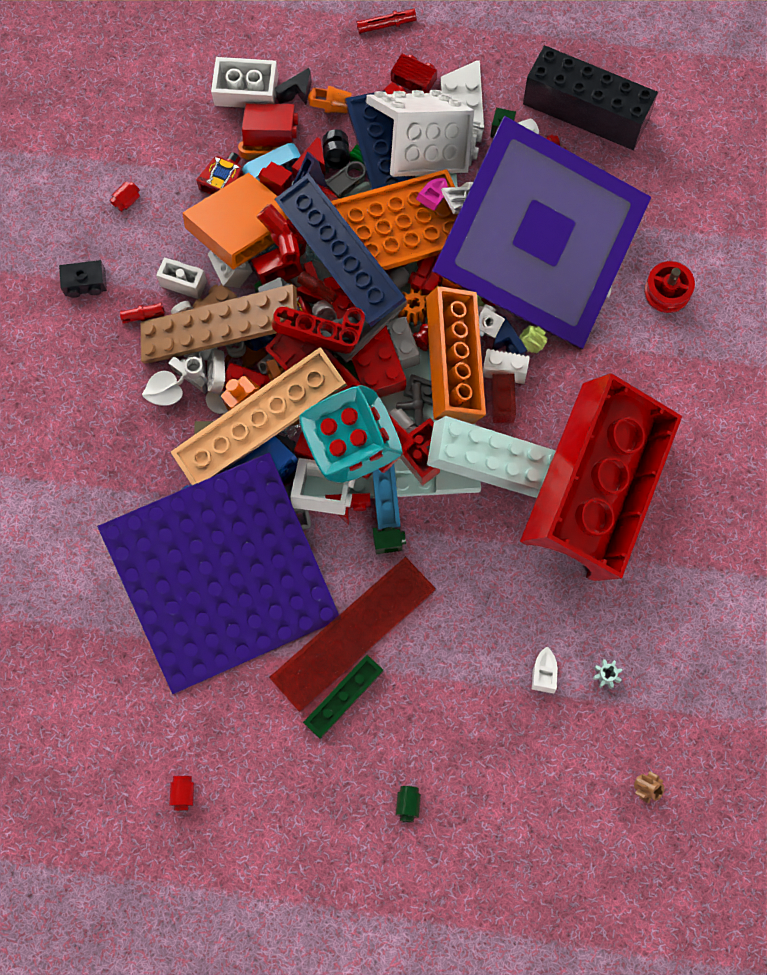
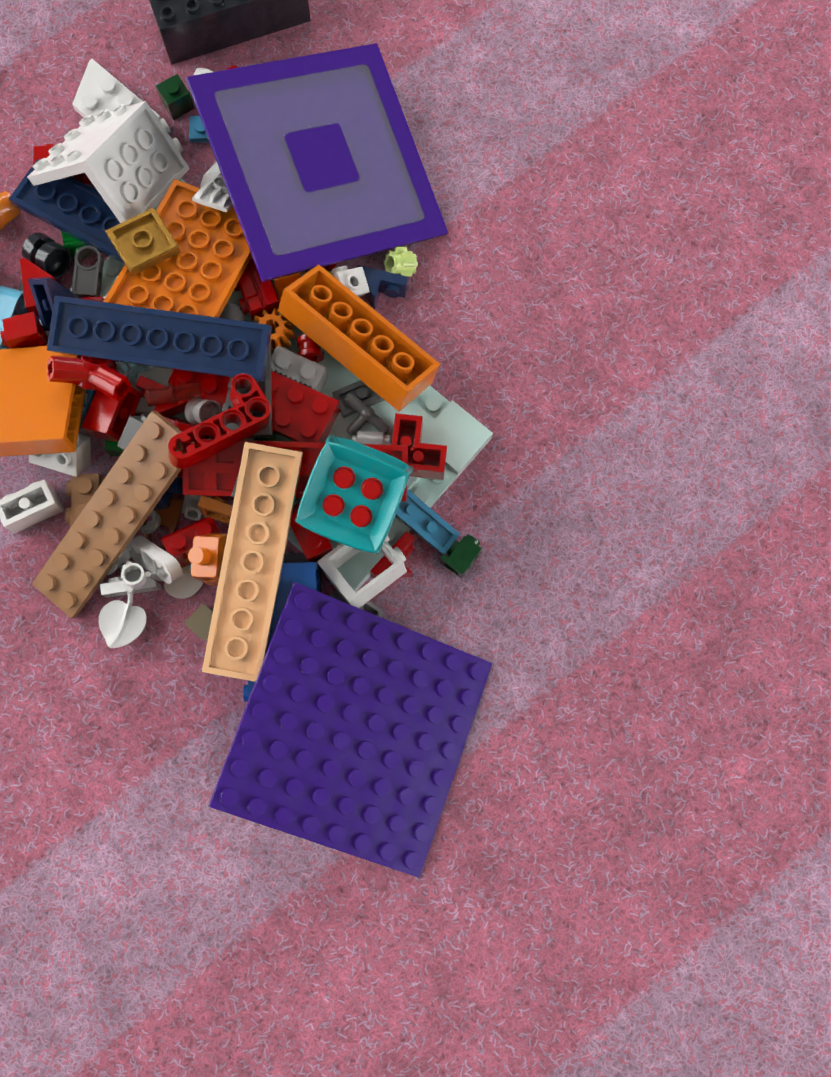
camera: 50 degrees left, 5 degrees up
(142, 313) = (24, 574): red pin -> none
(181, 793) = (520, 951): red brick -> none
(182, 306) = (58, 533): white tile -> none
(343, 696) = (565, 726): dark green plate -> none
(352, 634) = (516, 667): clear red plate -> none
(389, 187) = (142, 241): none -> pearl gold tile
(408, 803) = (711, 757): dark green brick -> none
(413, 73) = (44, 123): red brick -> none
(431, 194) = (187, 212): dark pink plate -> none
(489, 456) = (483, 395): light aqua brick -> none
(503, 398) = (430, 336): clear red brick -> none
(505, 363) = (405, 306): white brick -> none
(545, 672) = (702, 534): white plate -> none
(603, 476) = (588, 323): red piece -> none
(614, 673) = (752, 492): light aqua gear -> none
(669, 286) = (466, 111): red wheel -> none

